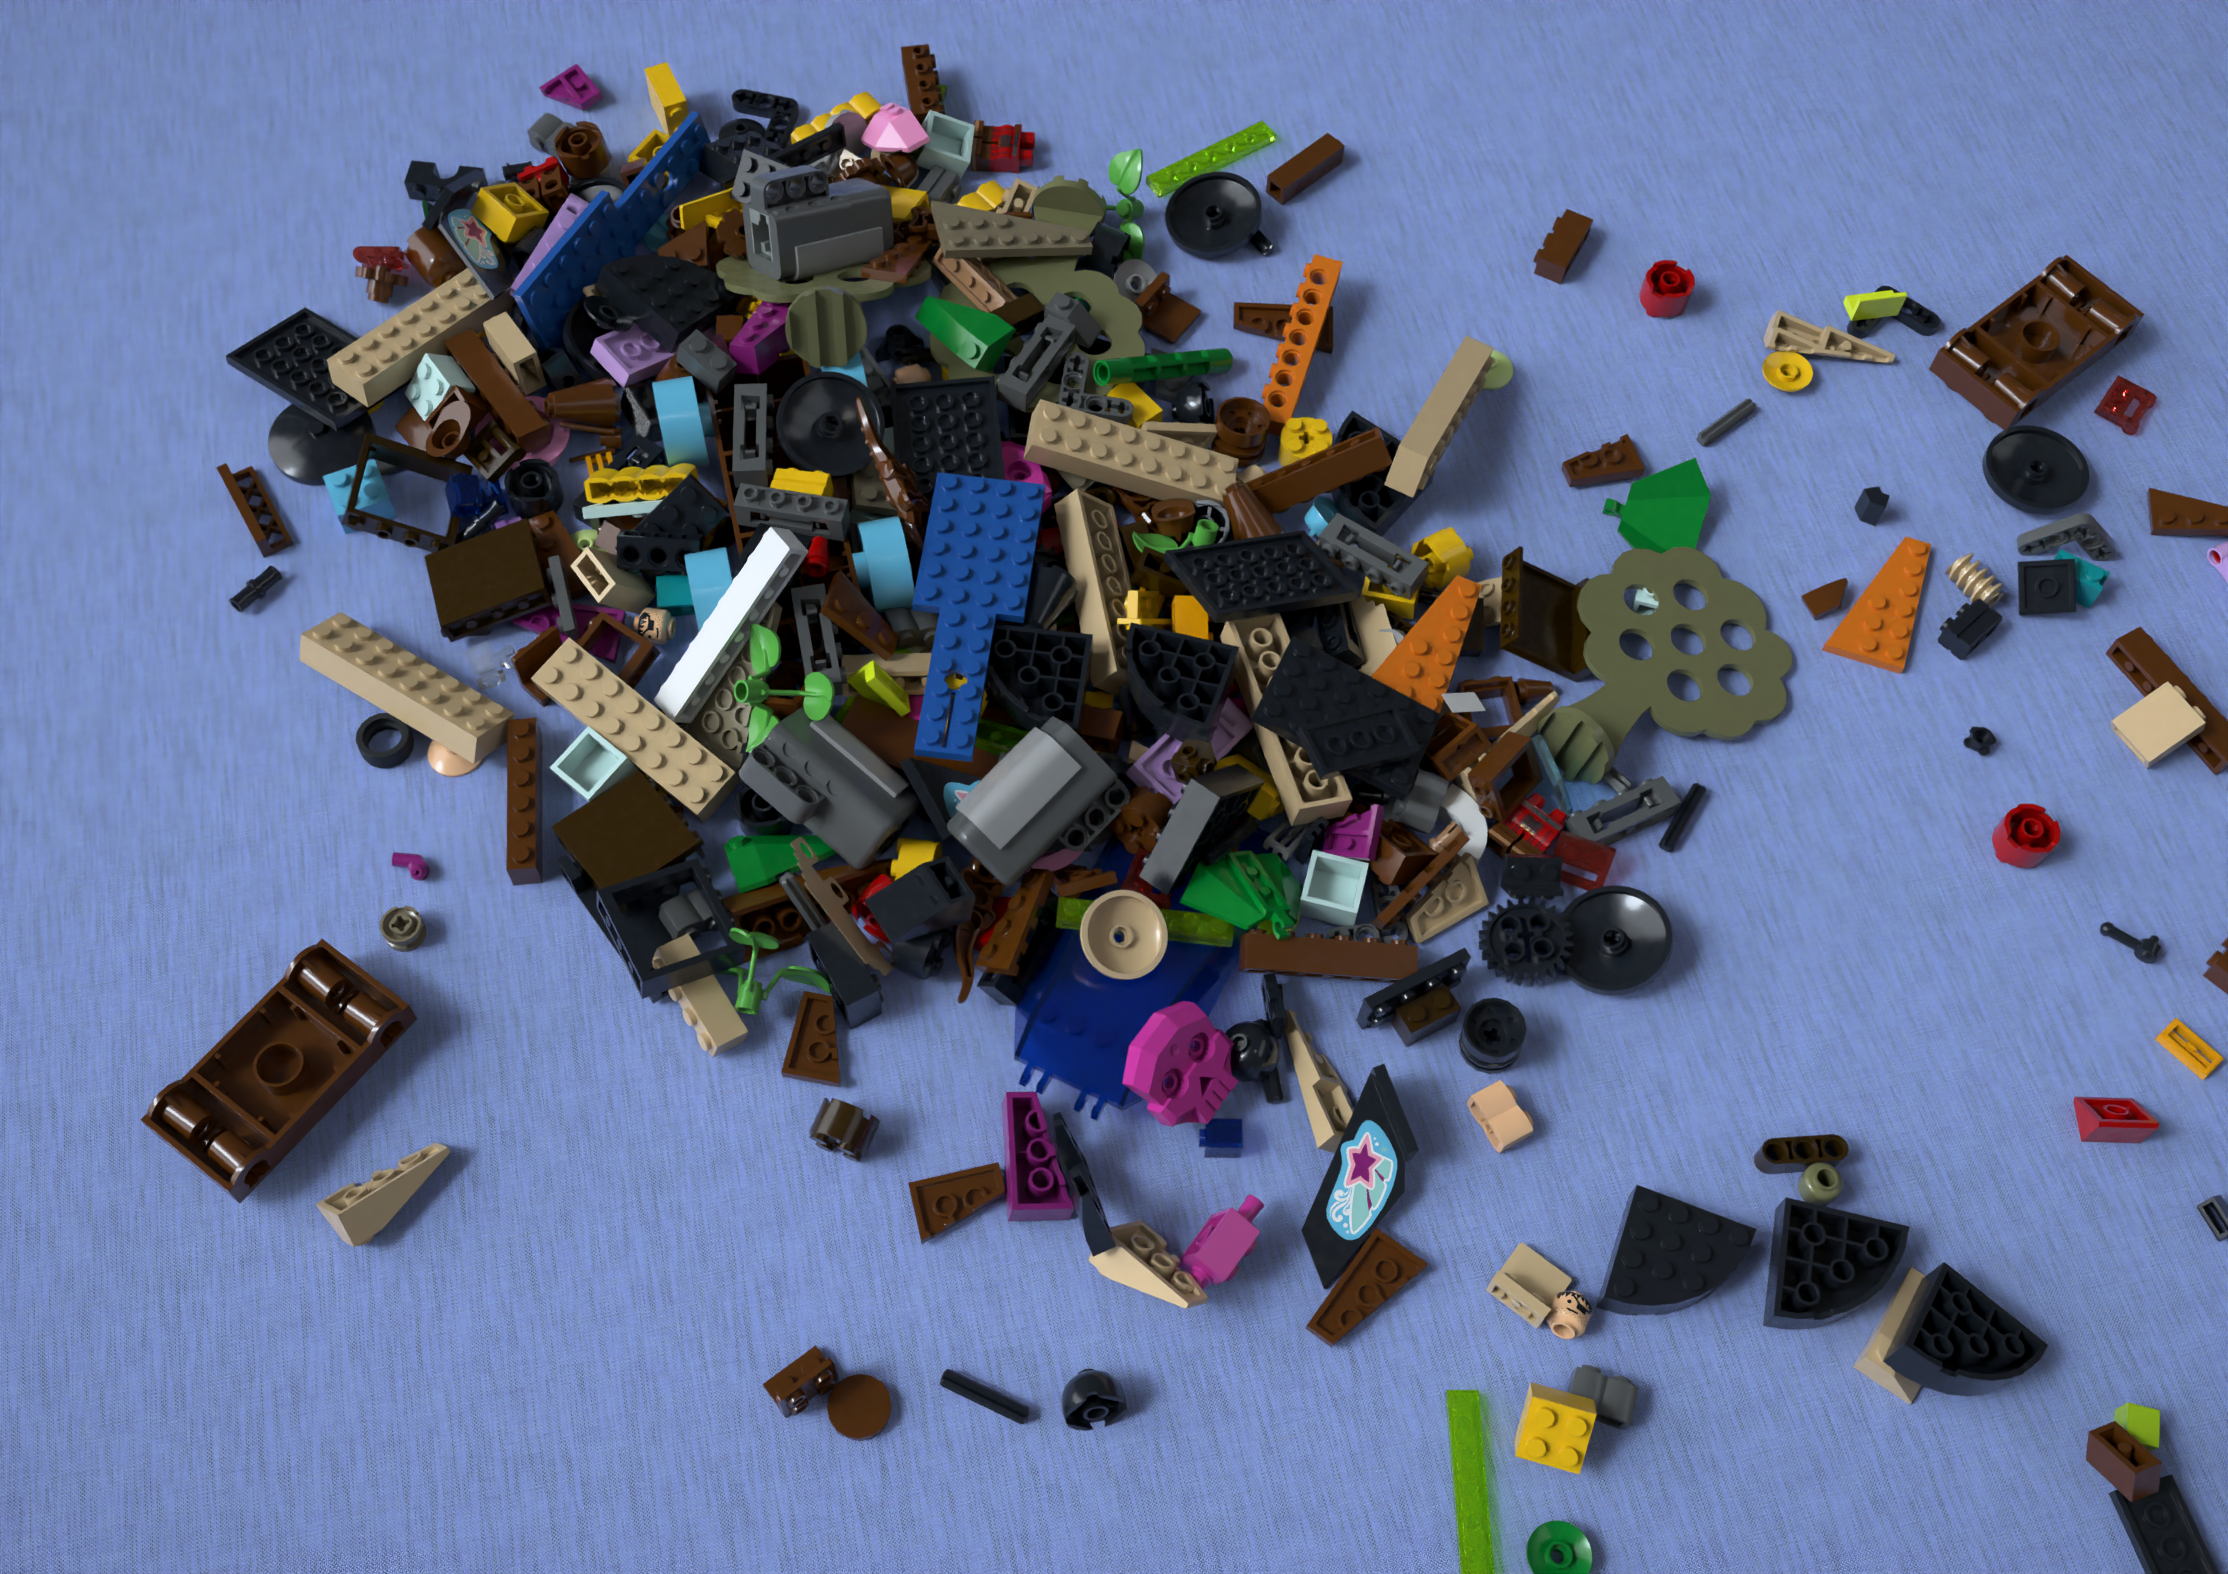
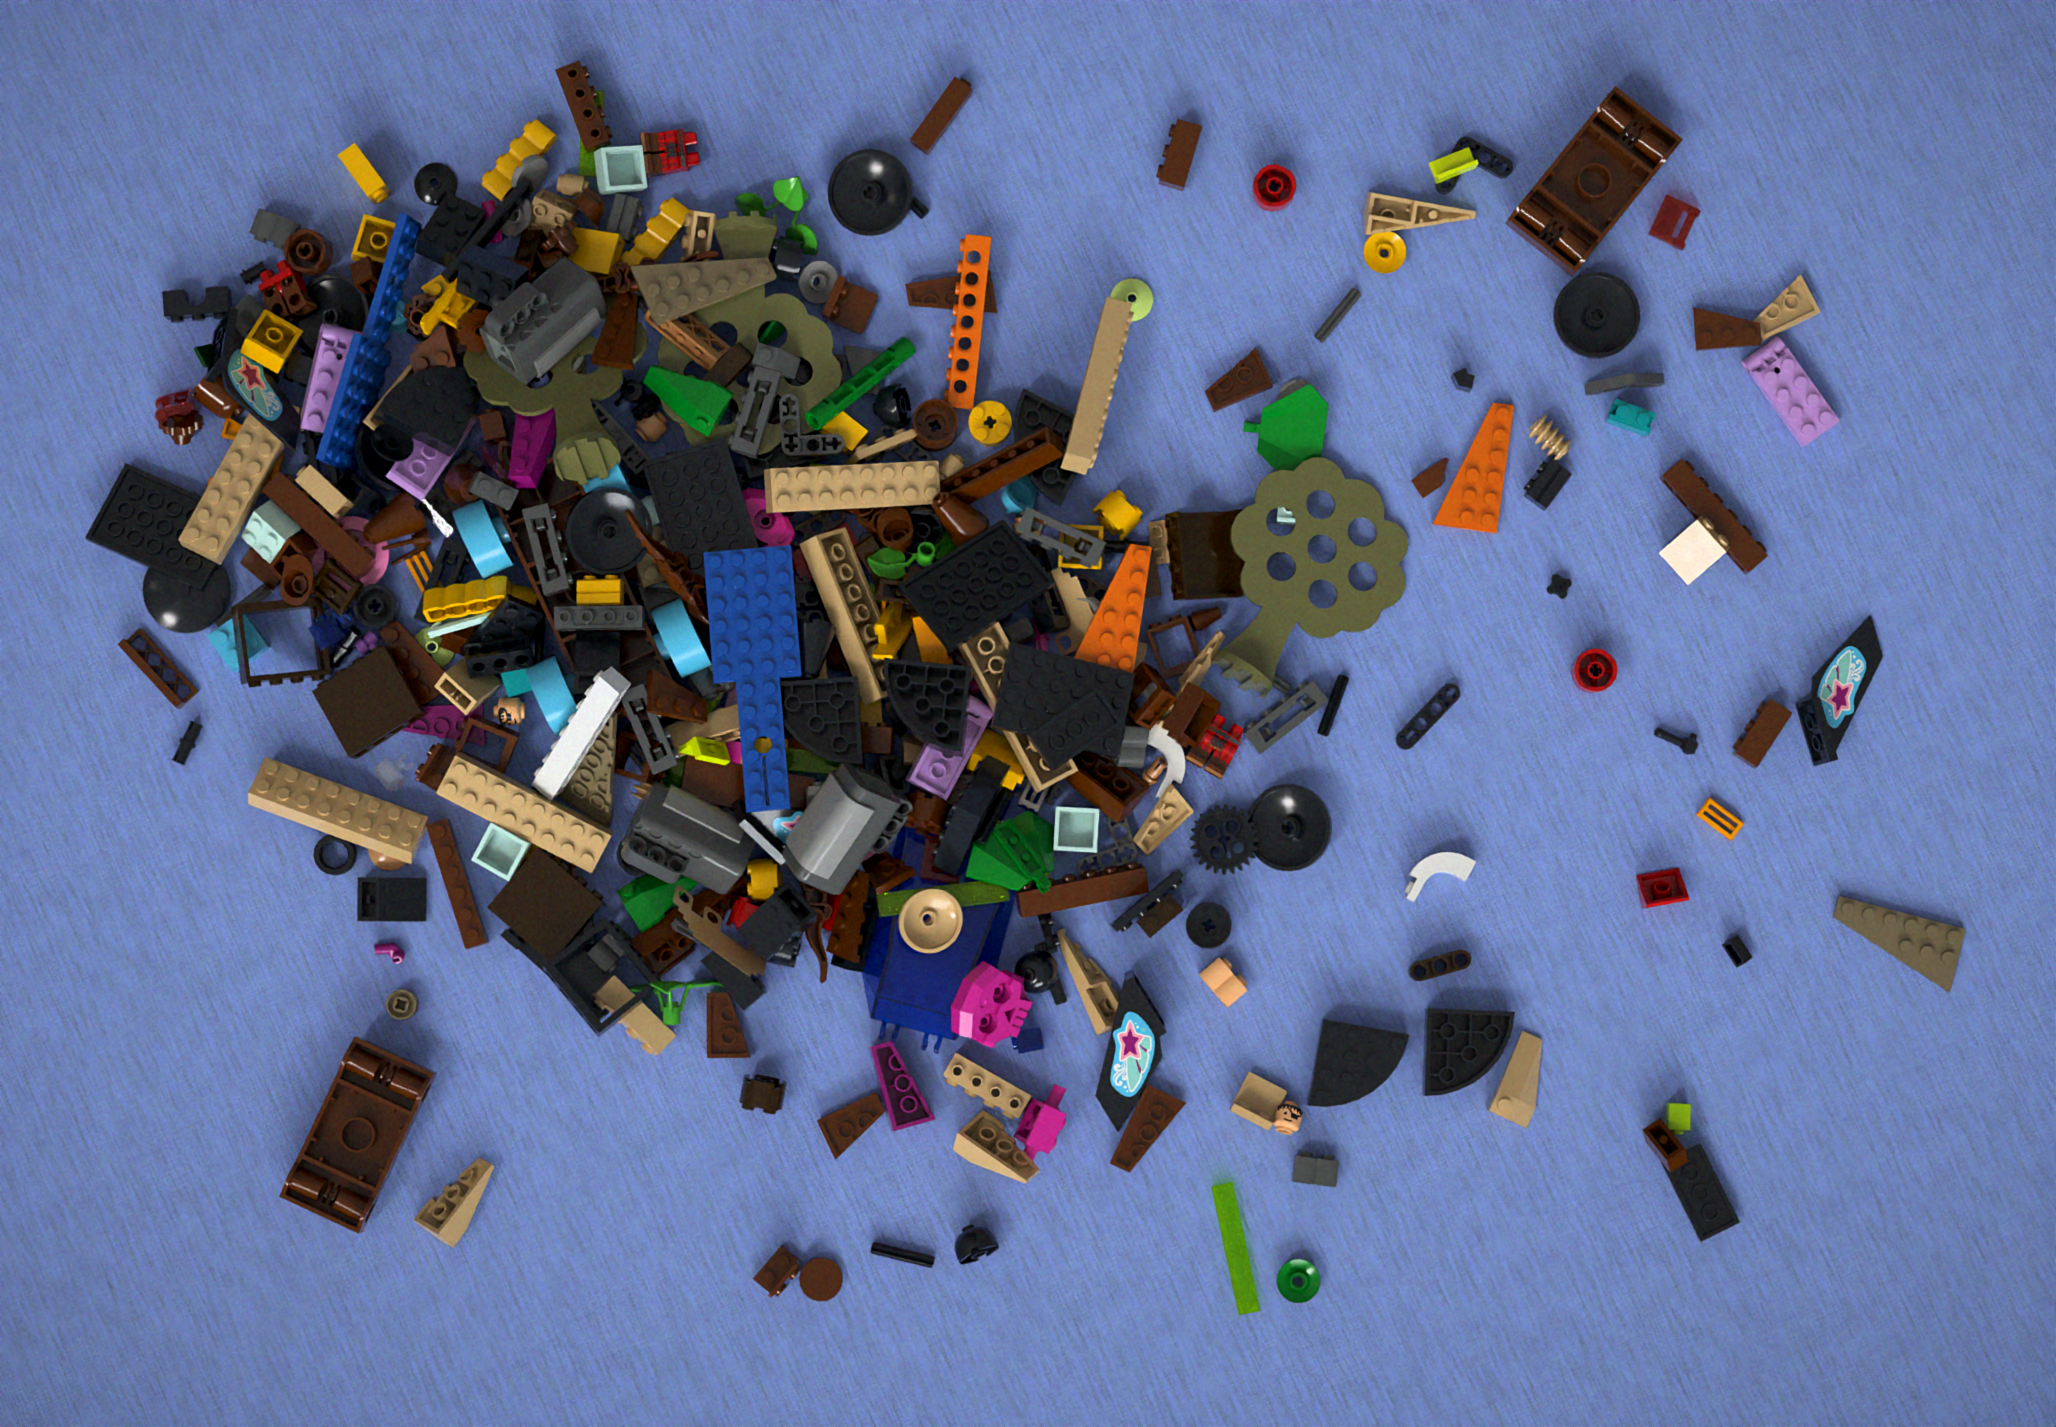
camera: 10 degrees left, 25 degrees up
(433, 801) = (391, 899): none -> black slope
(562, 598) = (433, 708): dark grey plate -> none
(572, 88) = (272, 167): magenta wing -> none
(766, 653) = (616, 792): bright green plant -> none
(787, 112) = (462, 157): black beam -> none
(817, 560) = (629, 653): red cone -> none
(894, 130) = (574, 176): bright pink wedge -> none
(1084, 1193) = (946, 1122): black wedge -> none
(1153, 1185) = (986, 1085): none -> tan brick
(1193, 759) = (954, 770): dark brown brick -> none
(1211, 158) = (855, 118): clear neon green plate -> none
(1356, 836) = (1085, 792): magenta wing -> none
(1427, 877) = (1141, 814): reddish brown wing -> none
(1463, 702) = (1151, 652): white sticker -> none
(1532, 876) = (1223, 789): black bracket -> none
(1552, 774) = (1227, 703): clear light blue tile -> none
(1555, 1428) = (1285, 1202): yellow brick -> none
(1586, 856) = (1258, 761): clear red plate -> none
(1802, 851) = (1425, 714): none -> black beam
(1809, 1025) = (1447, 862): none -> white arch
(1820, 1184) = (1460, 991): olive head -> none
(1960, 1339) = (1552, 1086): black brick -> none
(2046, 586) = (1606, 435): black tile -> none

